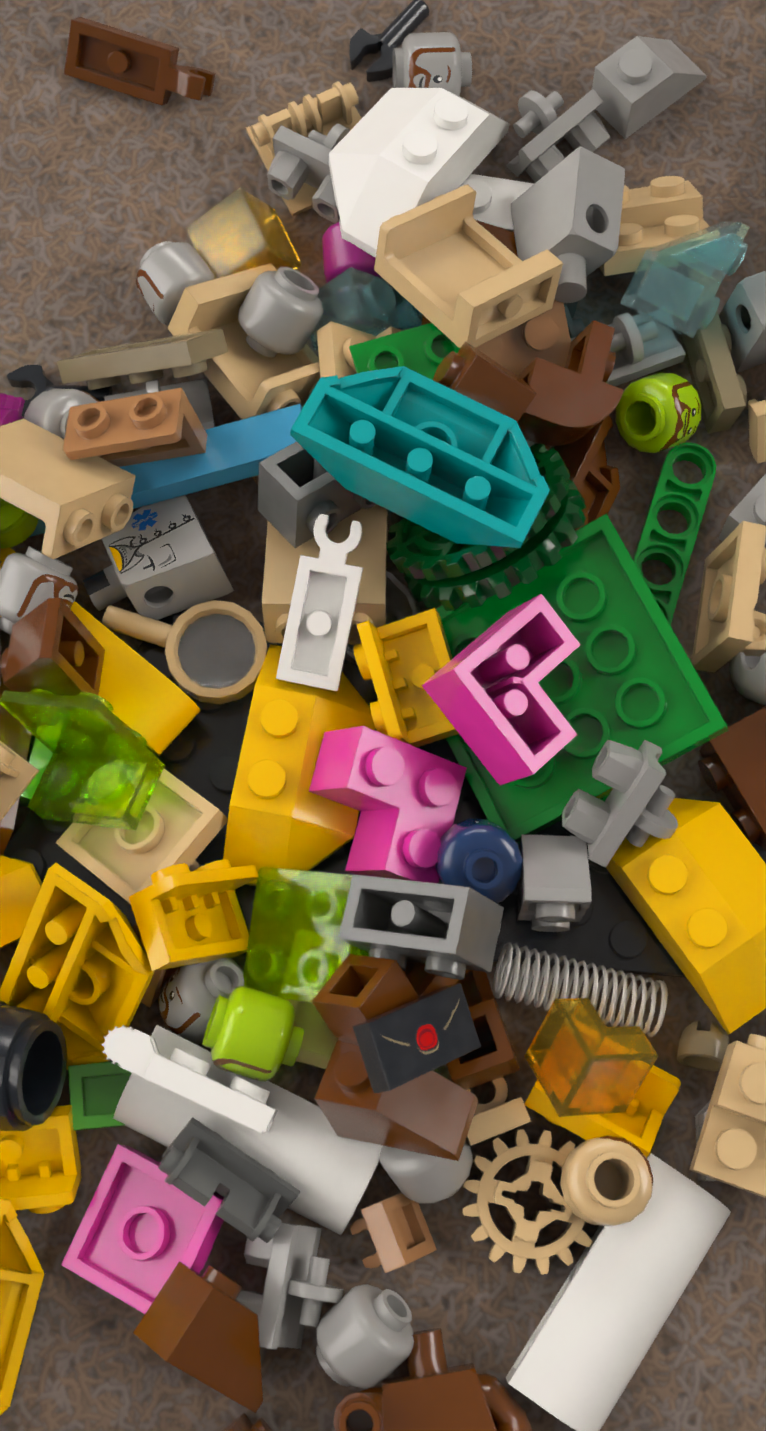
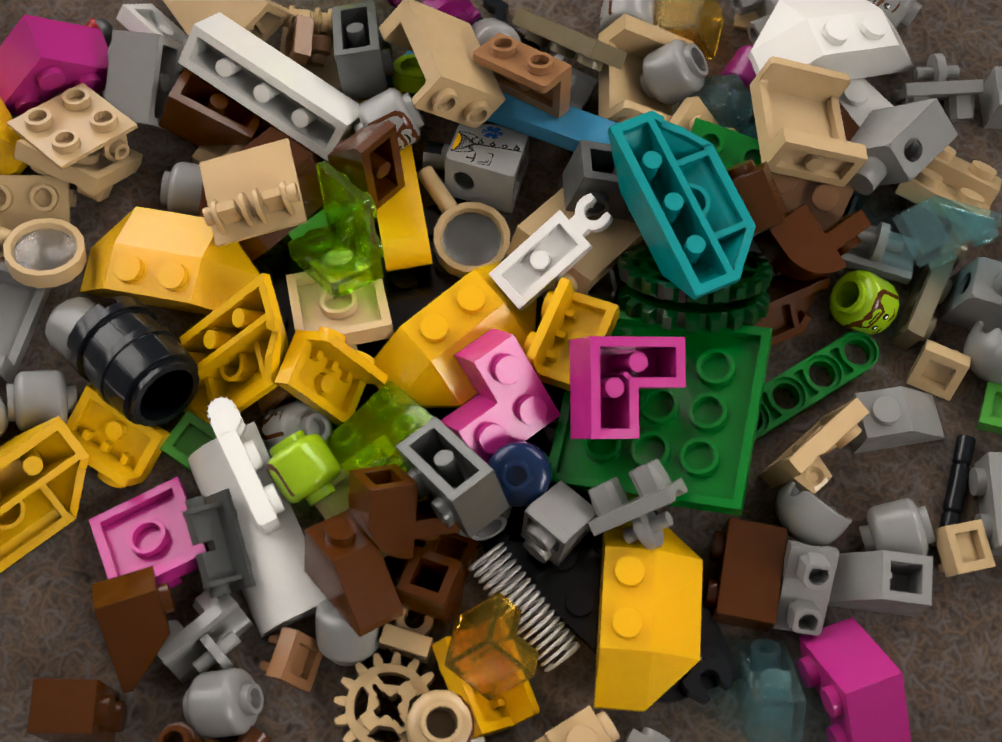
camera: 30 degrees right, 5 degrees down
(416, 1037) = (392, 539): black tile -> none
(702, 1048) = (570, 701): dark tan hinge -> none

